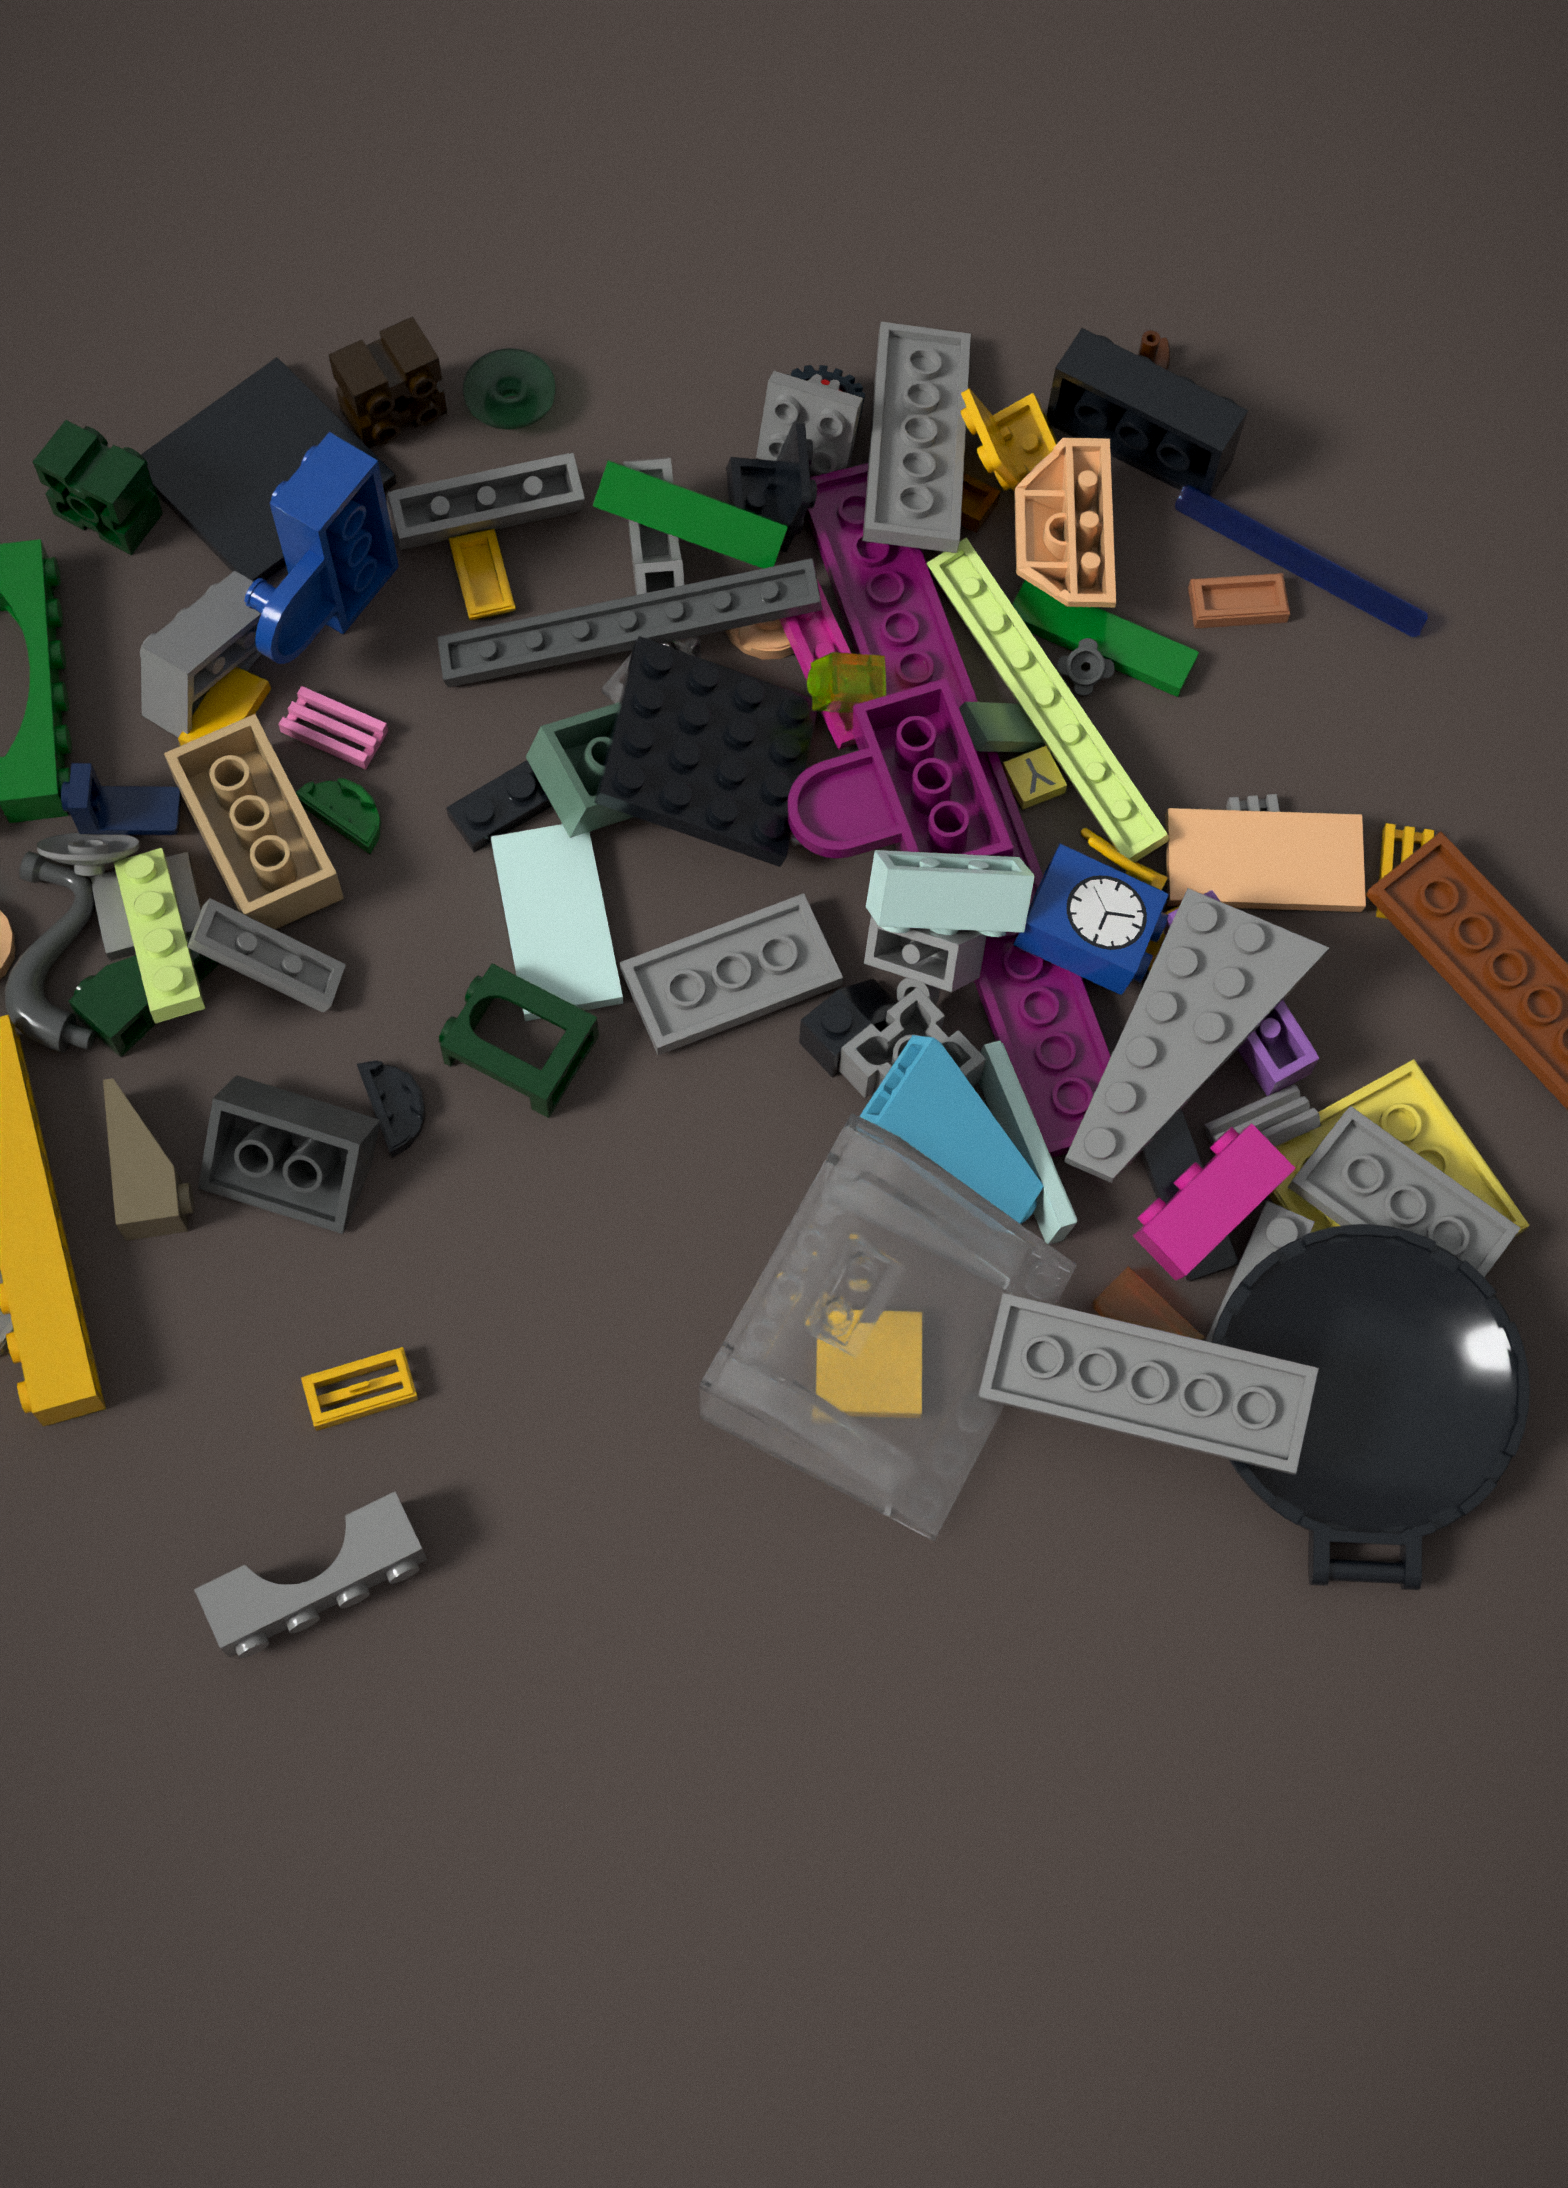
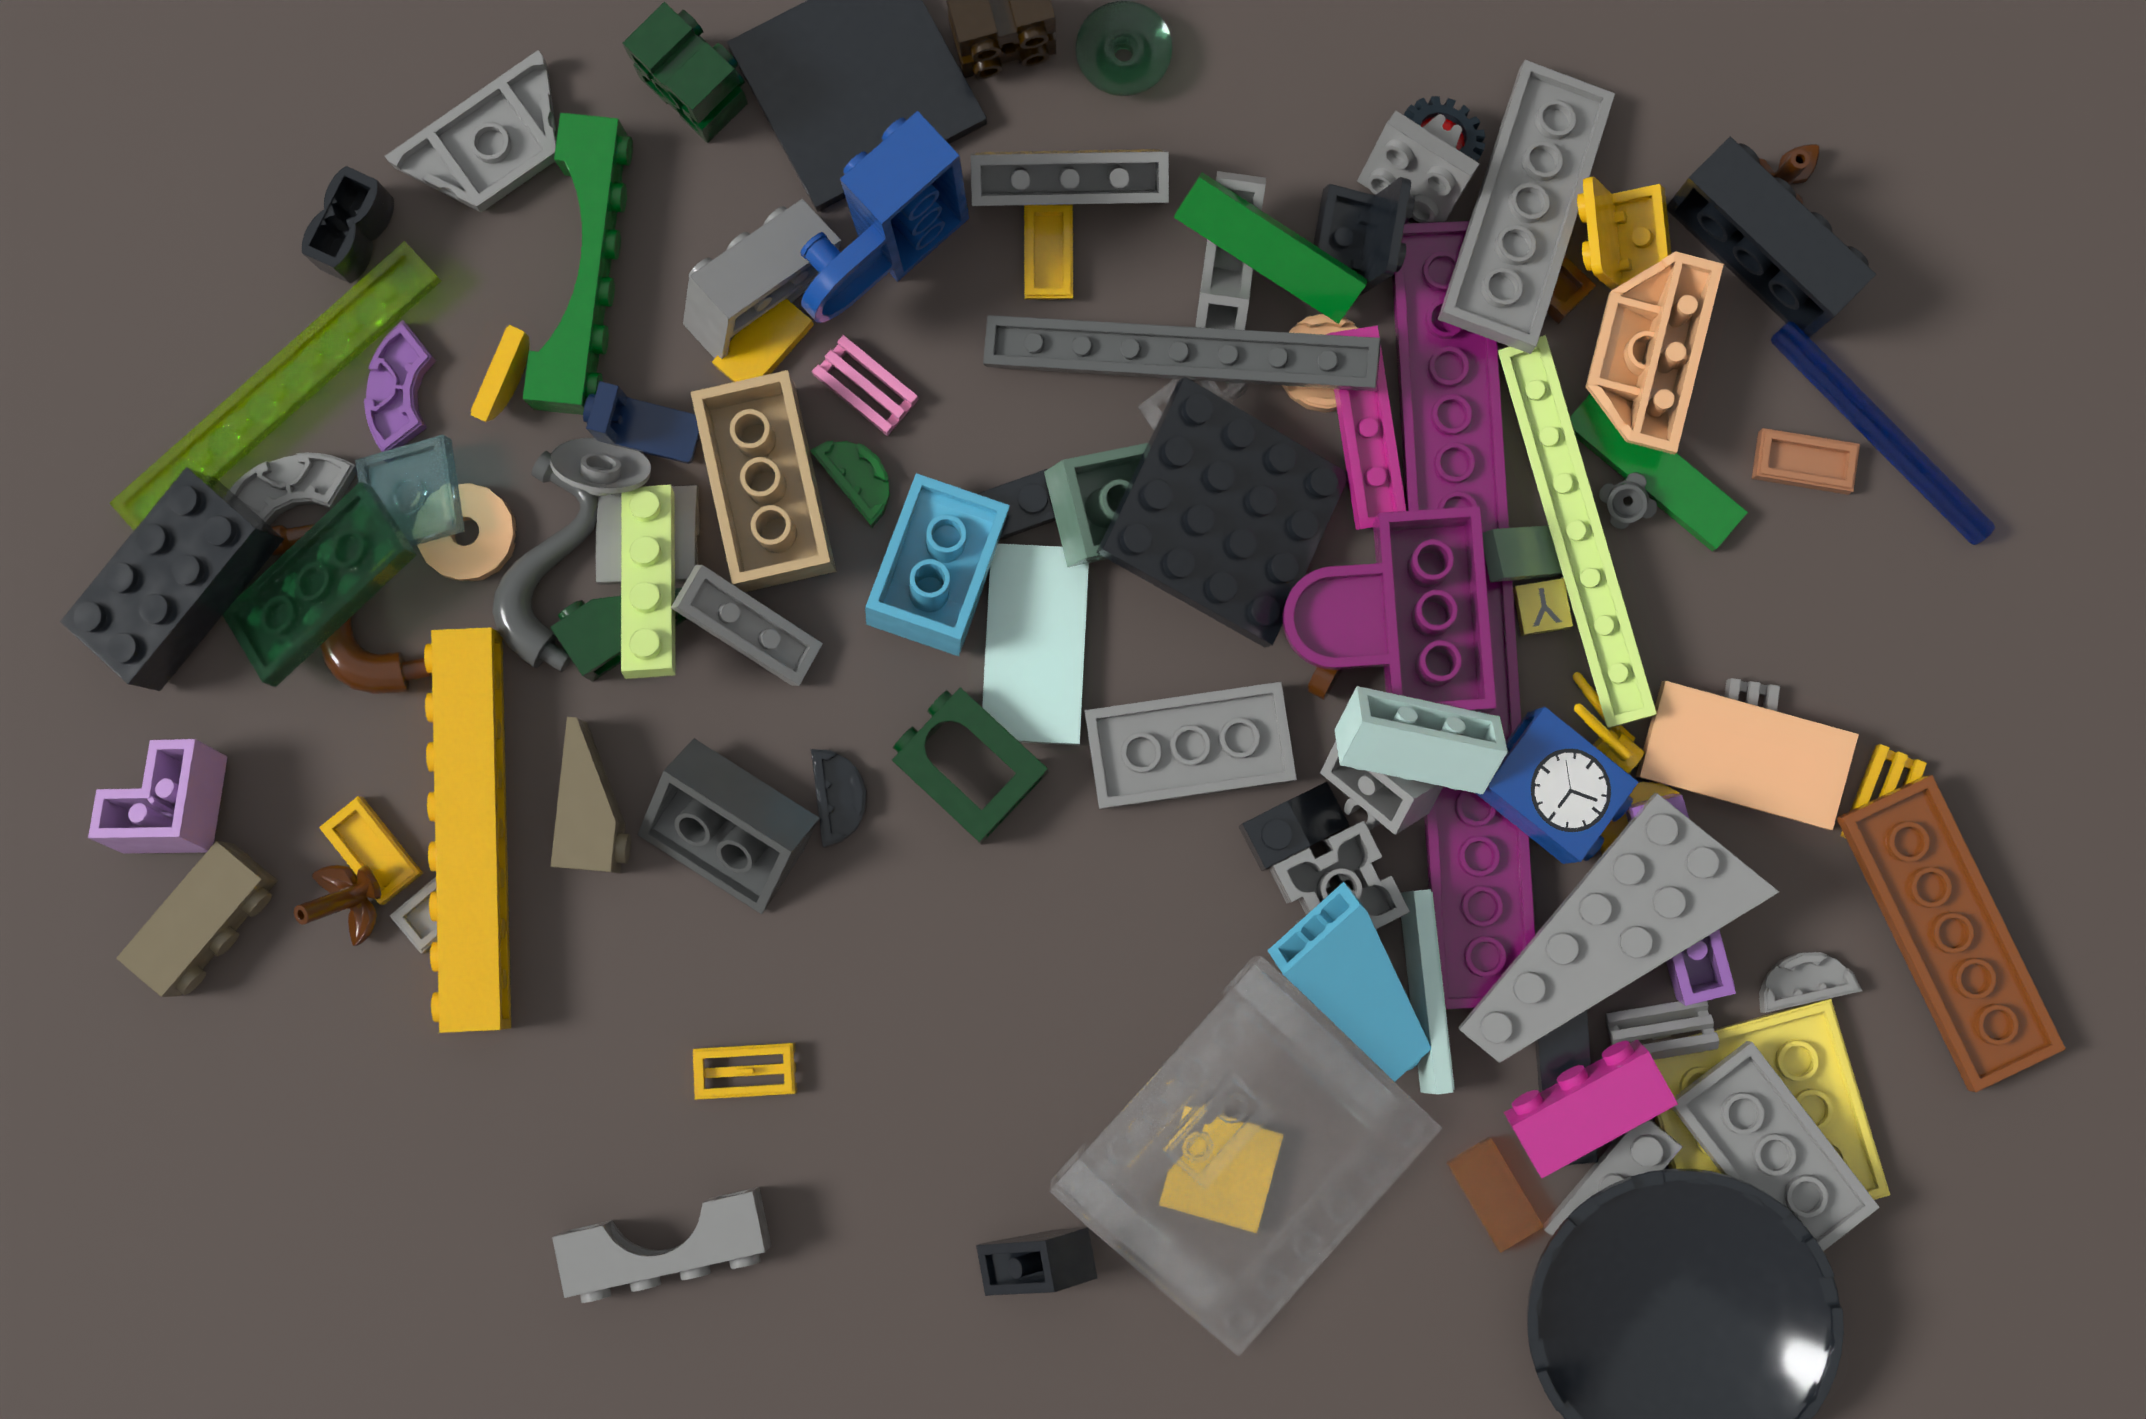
camera: 20 degrees right, 15 degrees up
(441, 864) = (936, 564): none -> medium azure slope
(705, 1496) = (1037, 1262): none -> black slope
(845, 680) = (1380, 478): clear neon green brick -> none
(846, 879) = (1323, 682): none -> reddish brown tile
(1149, 1383) = (1475, 1275): light grey plate -> none
(1384, 1049) = (1804, 980): none -> light grey tile

